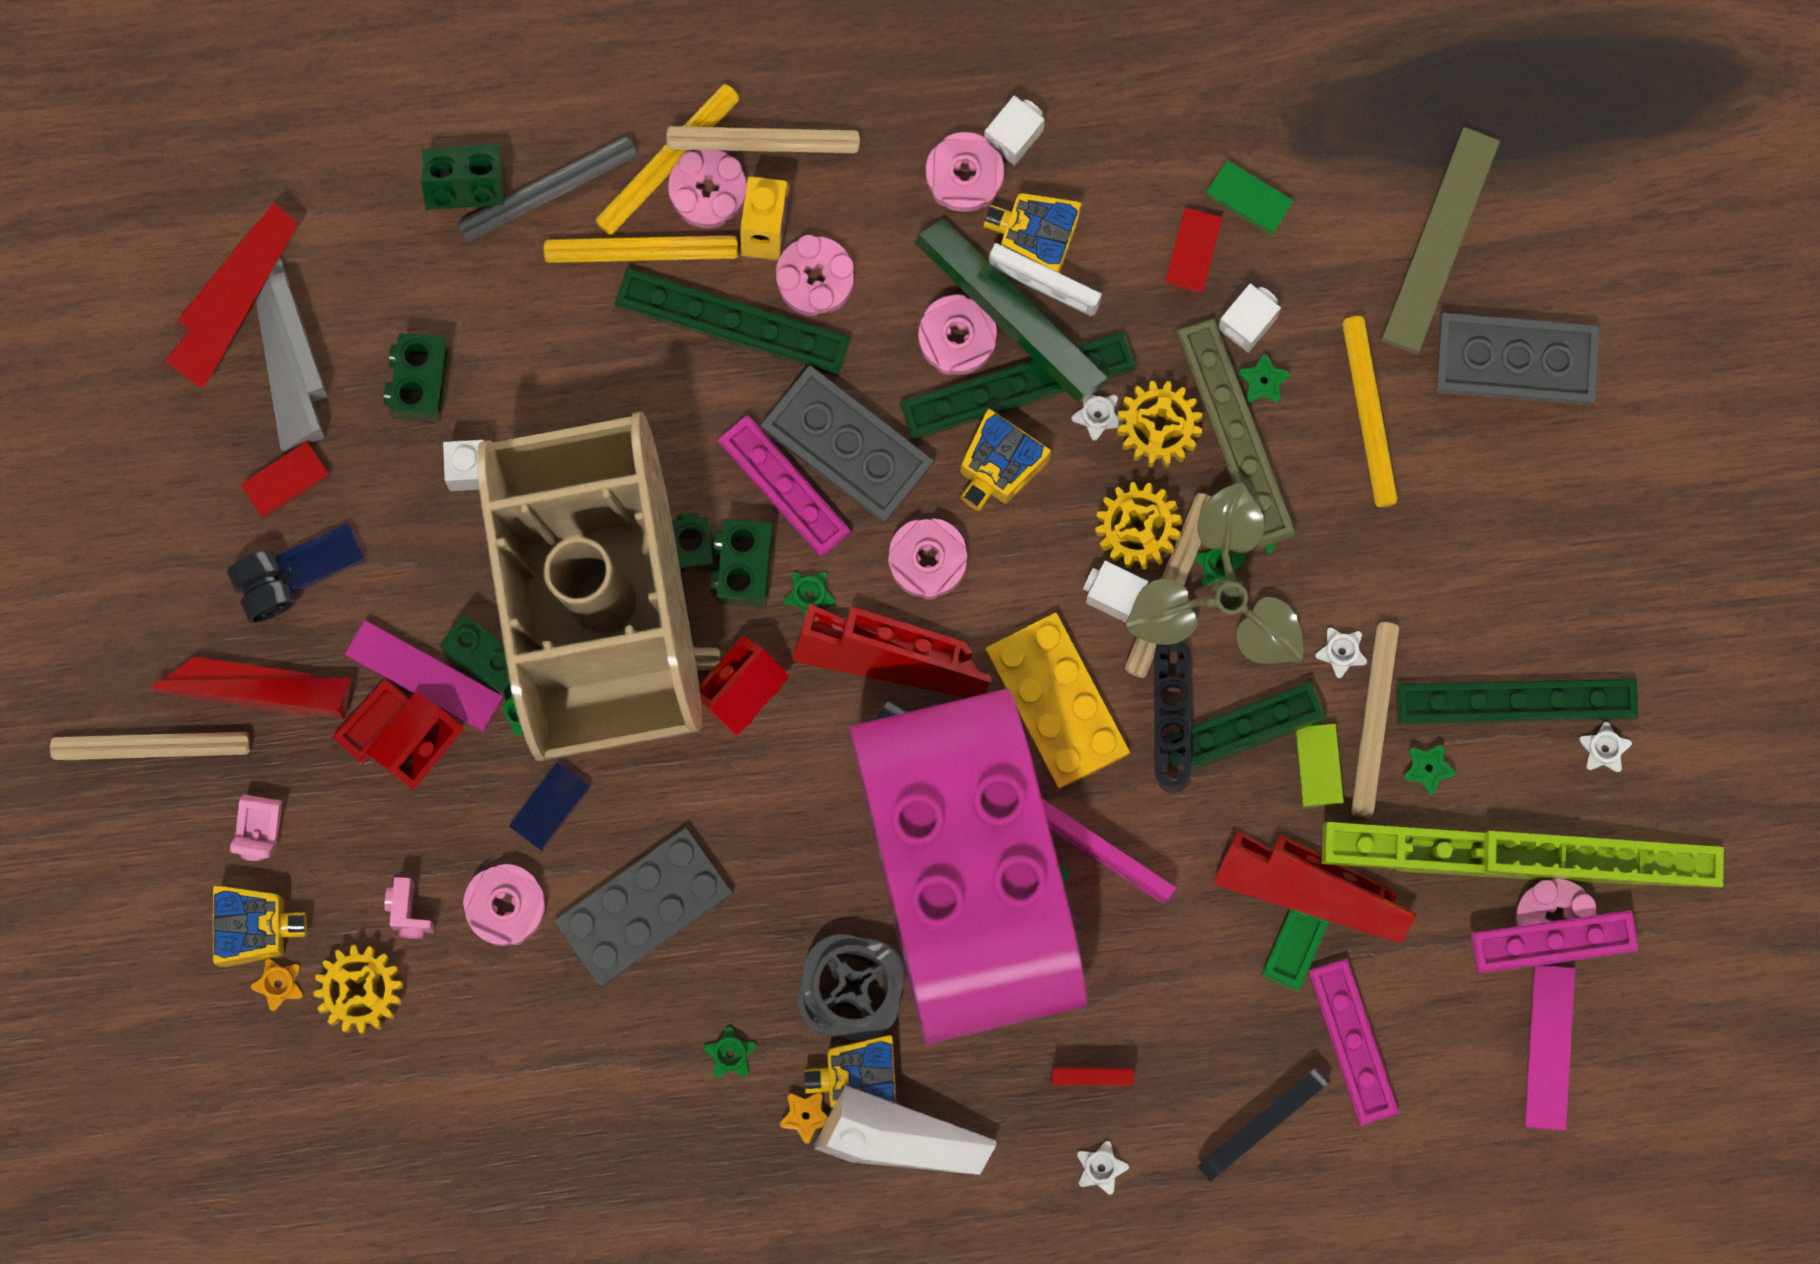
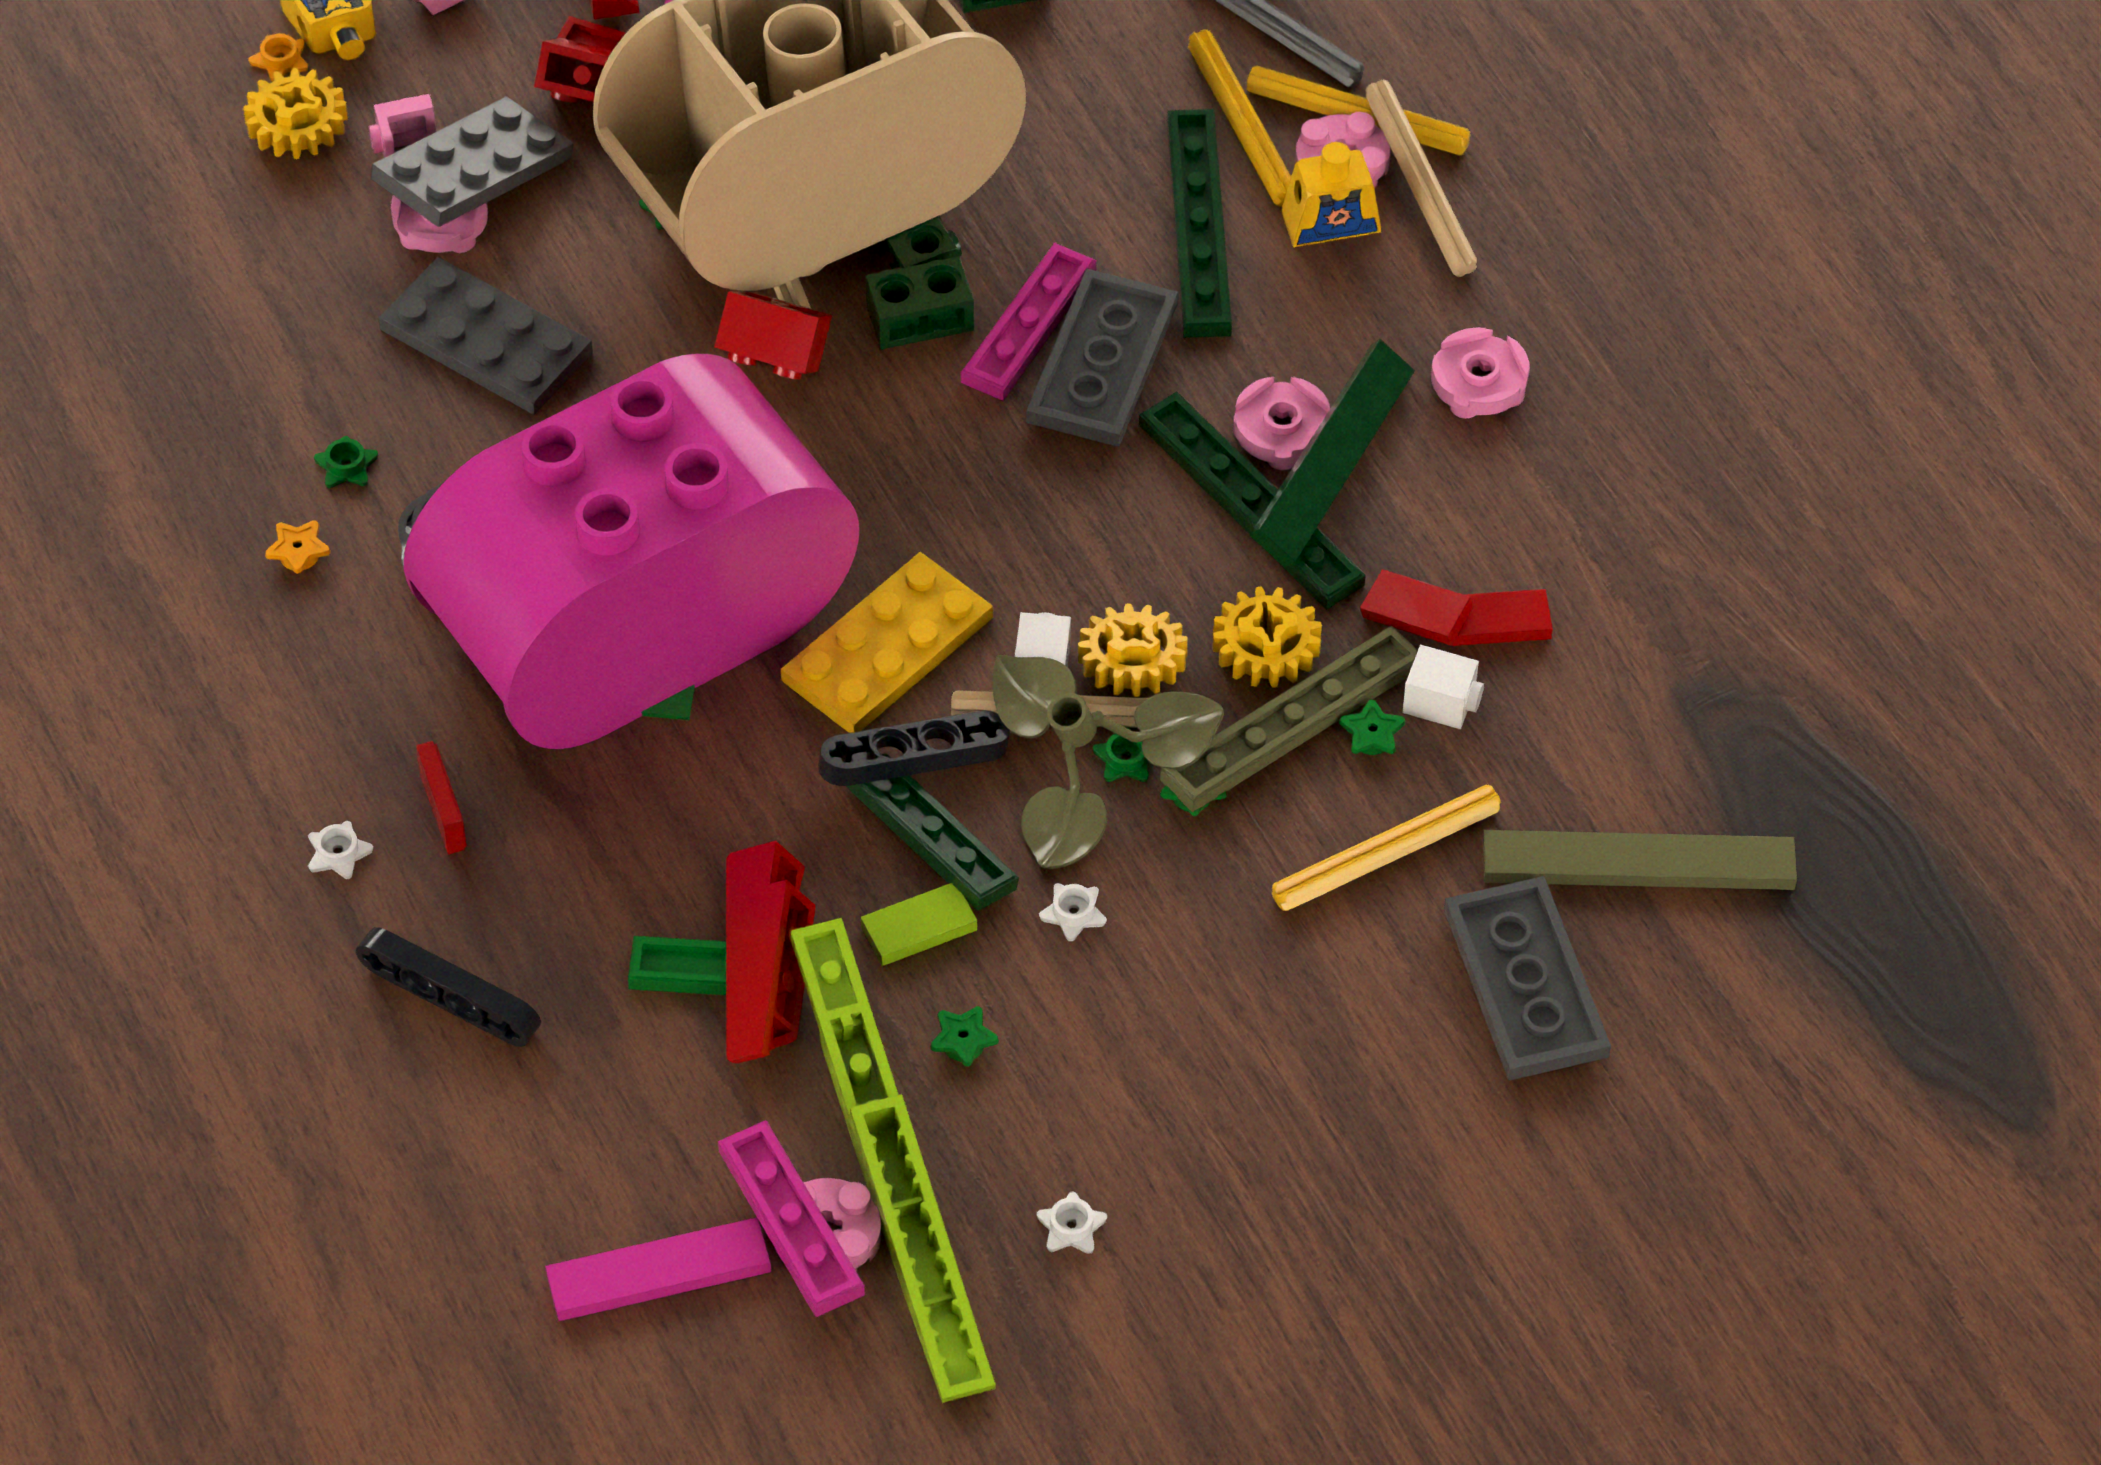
camera: 70 degrees right, 25 degrees down
(472, 864) = (472, 161): none -> dark grey plate
(549, 807) = (568, 222): clear blue tile -> none
(814, 584) = (914, 369): green plate -> none
(820, 297) = (1289, 254): bright pink plate -> none
(860, 1065) = (359, 577): torso -> none
(888, 652) = (876, 461): red wedge -> none
(891, 1135) = (298, 617): white wedge -> none
(925, 536) = (1003, 492): bright pink plate -> none
(1000, 461) = (1148, 498): torso -> none
(1015, 129) = (1554, 400): white brick -> none
(1036, 228) = (1443, 457): torso -> none
(1044, 280) = (1387, 478): white tile -> none
(1097, 425) = (1251, 573): white plate -> none
(1107, 854) = (720, 731): dark pink tile -> none
(1170, 306) = (1416, 607): none -> red tile
(1249, 198) = (1591, 653): green tile -> none
(1353, 1042) = (586, 1058): dark pink tile -> none
(1375, 720) = (1000, 963): tan axle -> none
(1517, 701) = (1090, 1111): dark green tile -> none

